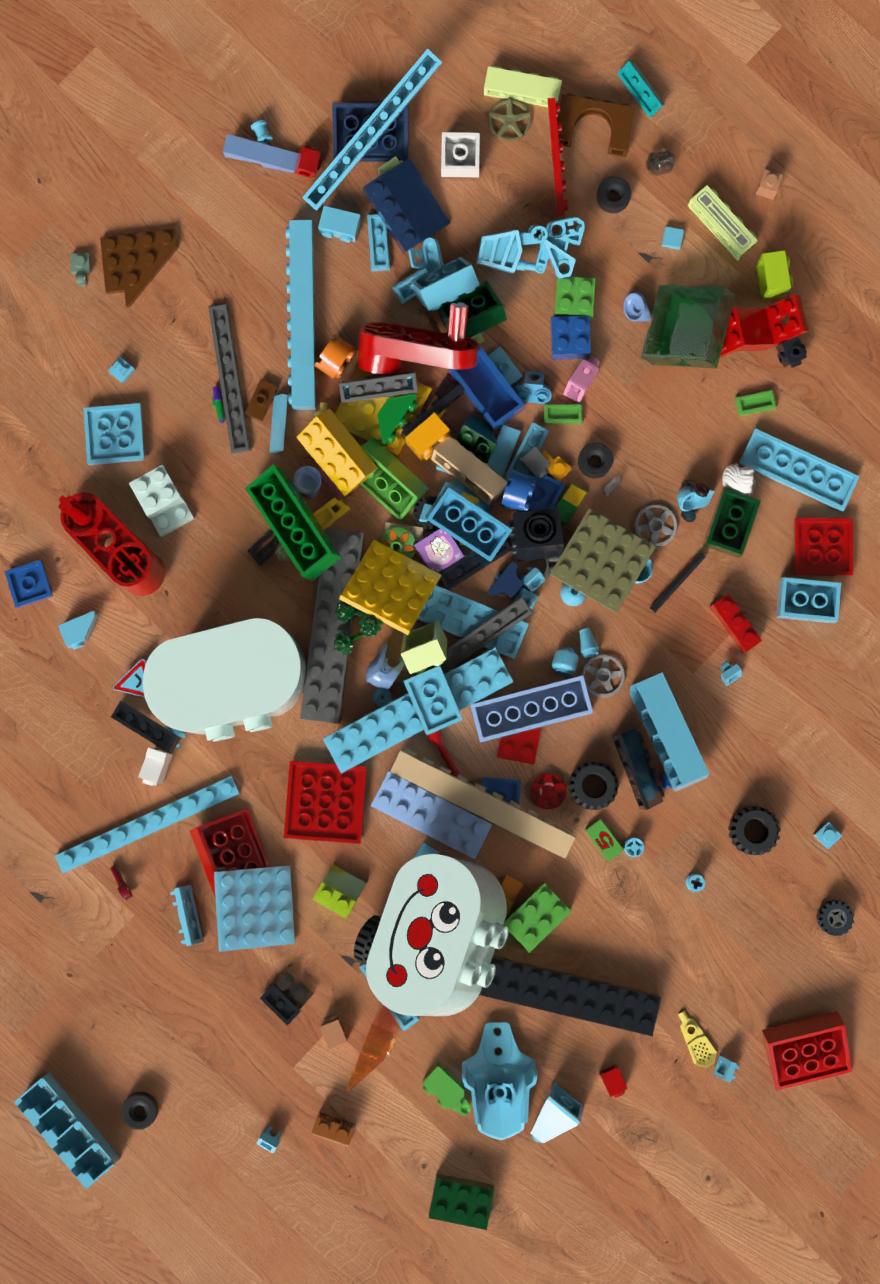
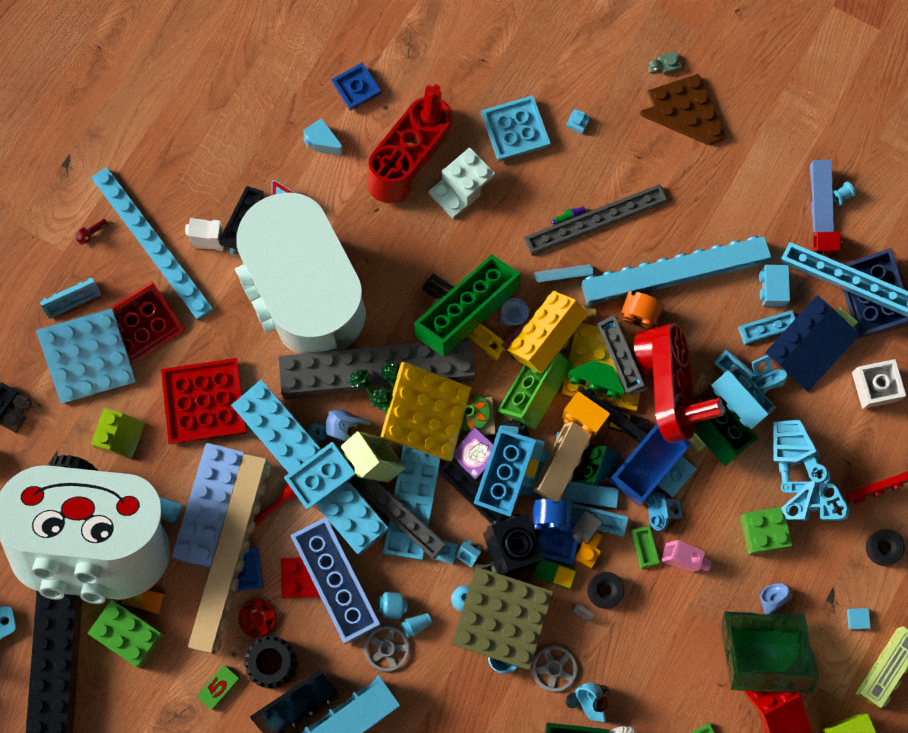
camera: 70 degrees right, 10 degrees down
(261, 400) = (582, 253): reddish brown plate -> none
(507, 582) = (459, 528): dark blue brick -> none
(570, 337) = (724, 535): blue brick -> none
(633, 850) = (212, 719): medium azure wheel -> none
(678, 581) = (500, 705): black bar -> none

